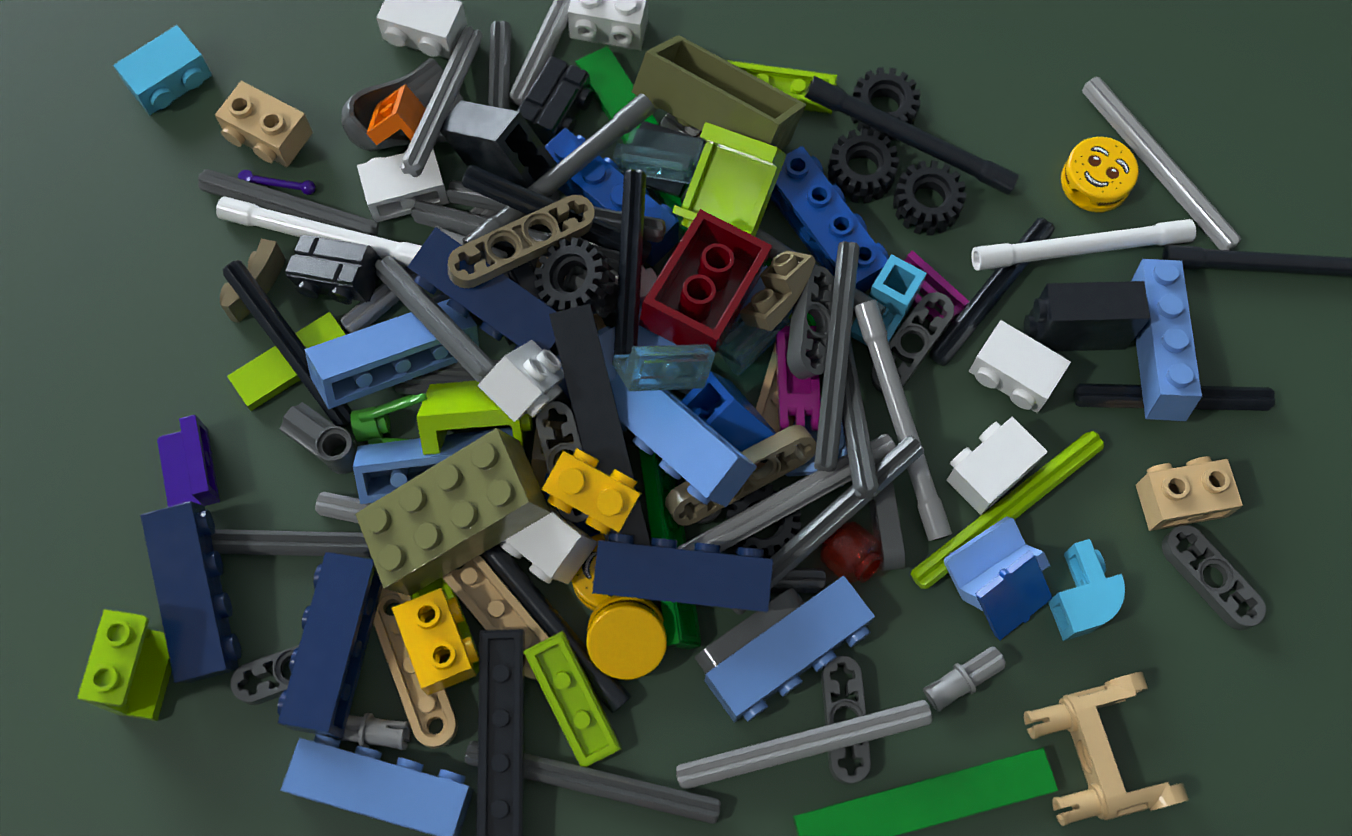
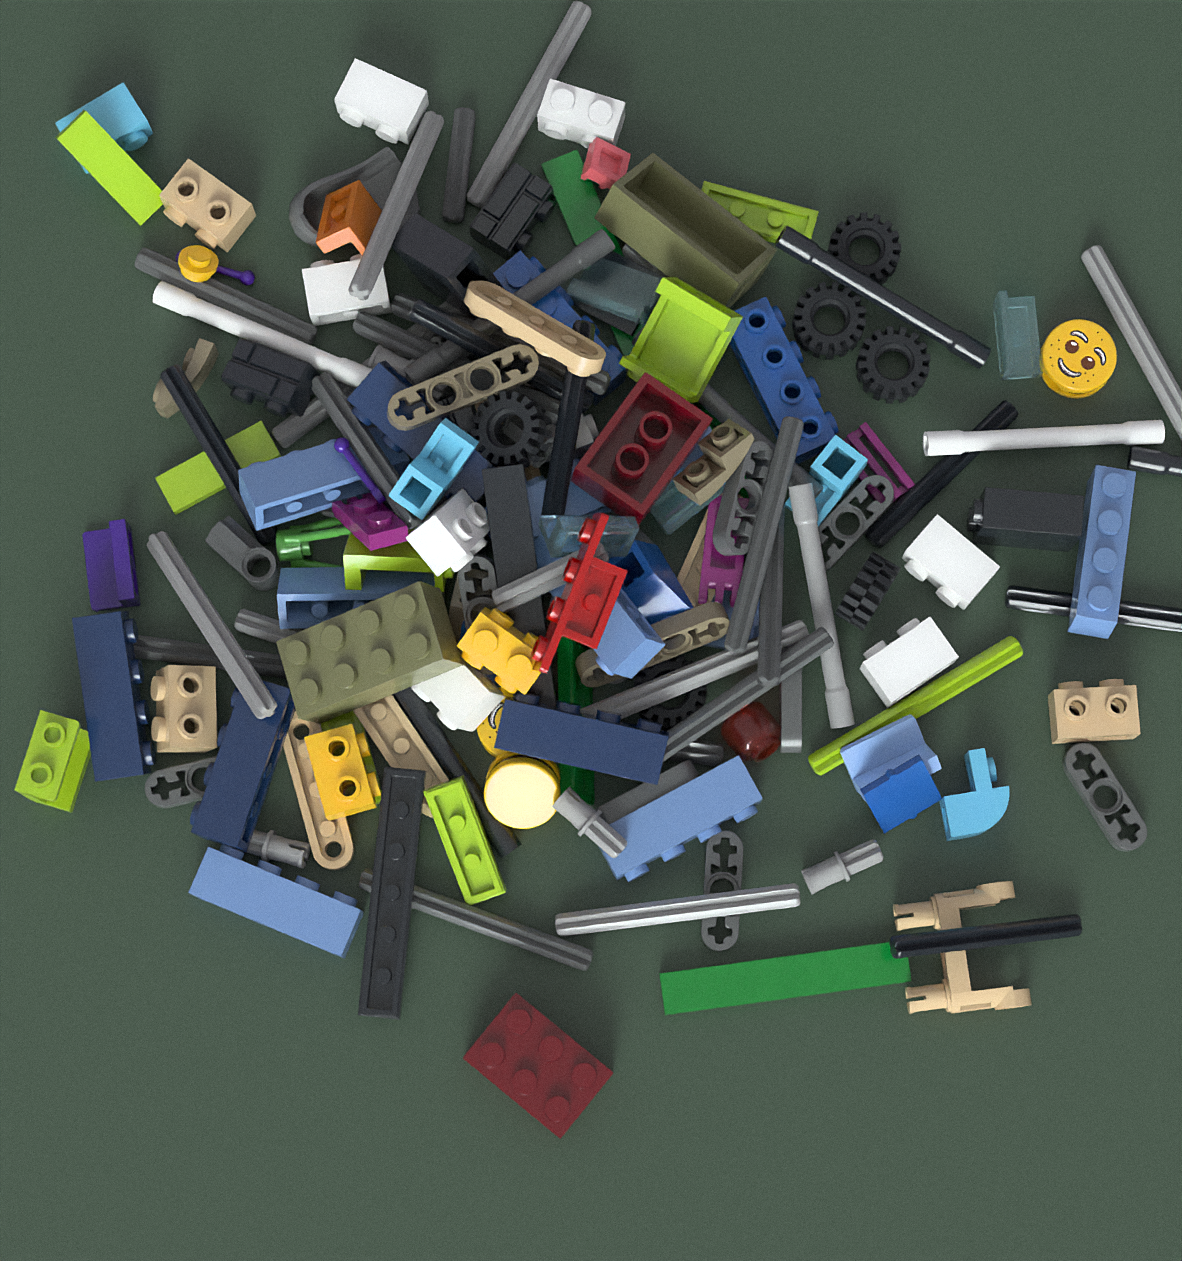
camera: 10 degrees right, 10 degrees up
(167, 97) = (111, 167): none -> lime tile
(257, 175) = (197, 263): none -> yellow plate
(267, 597) = (185, 709): none -> tan brick
(291, 510) = (212, 625): none -> light grey axle
(408, 317) = (342, 446): none -> dark purple hinge
(442, 383) = (370, 521): none -> magenta hinge
(502, 320) = (434, 469): none -> medium azure brick
(576, 175) = (535, 327): none -> tan plate
(630, 411) = (537, 582): none -> light grey axle
(632, 49) = (605, 163): none -> coral tile
(671, 425) = (586, 598): none -> red bracket
(701, 662) = (589, 823): none -> light grey axle
(945, 401) = (867, 591): none -> black tyre
(1038, 162) = (1017, 336): none -> clear light blue panel
(1128, 732) = (985, 936): none -> black axle

